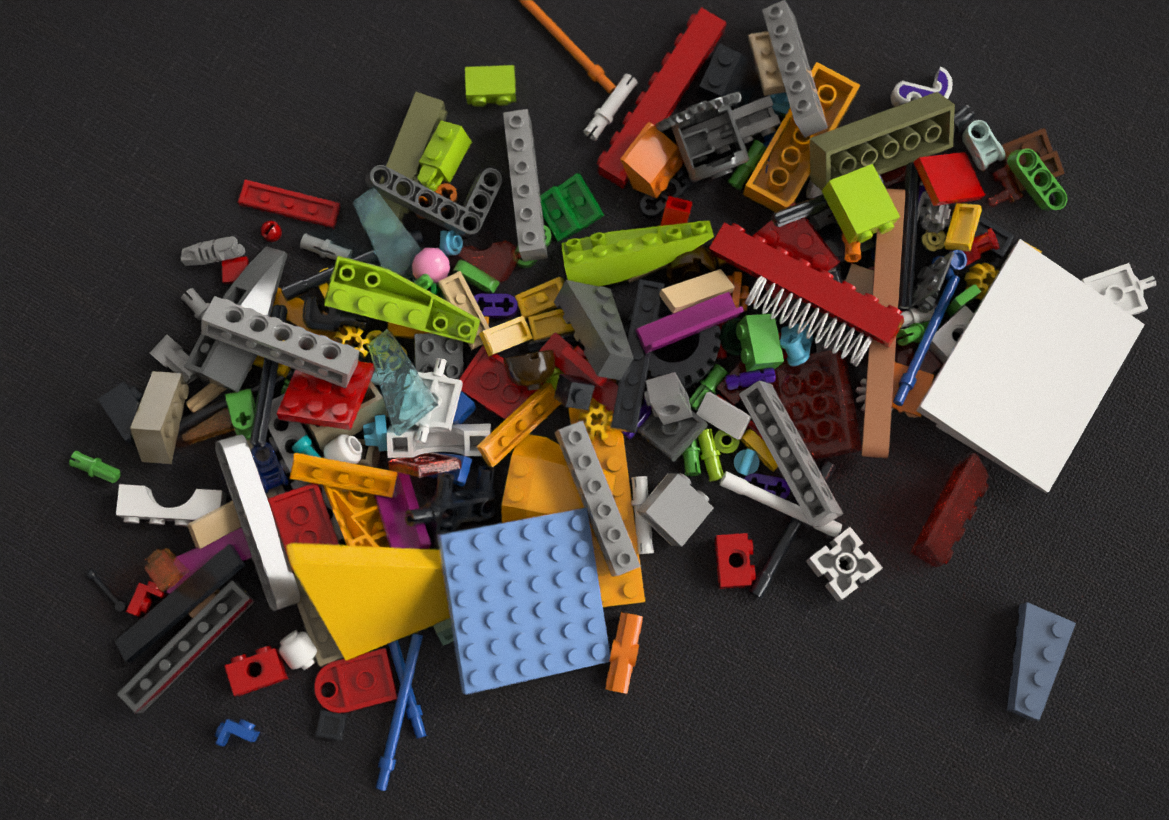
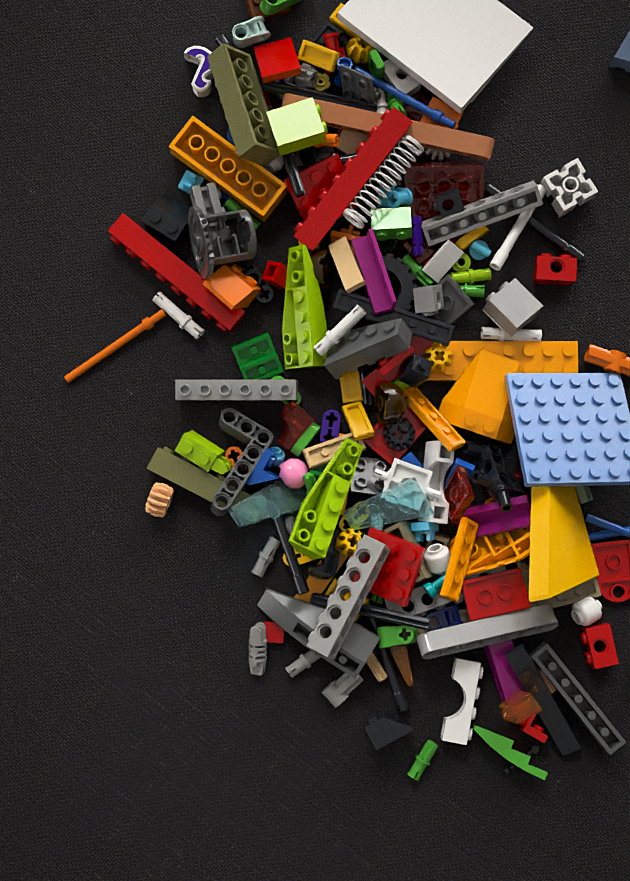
camera: 80 degrees left, 5 degrees up
(118, 562) = (503, 747): none -> bright green slope
(159, 417) = (390, 702): dark tan wedge -> none
(214, 525) = (485, 666): tan tile -> none
(274, 234) = (247, 596): red hinge -> none
(289, 204) = (223, 583): red tile -> none
(379, 112) = (159, 499): none -> light nougat gear
(428, 225) = (261, 472): none -> blue slope
(488, 397) = (393, 441): none -> black gear
(490, 85) = (147, 408): lime brick -> none
(539, 298) = (328, 390): yellow slope -> none
(597, 499) = (501, 363): light grey brick -> none
(603, 285) = (333, 337): none -> white pin
(766, 63) = (160, 185): tan tile -> none
(770, 481) = (495, 235): dark purple beam -> none
(794, 69) = (173, 163): light grey brick -> none
(807, 416) = (456, 205): none -> black brick
(951, 512) = (537, 103): clear red slope -> none
(1010, 192) = (291, 18): clear red piece -> none

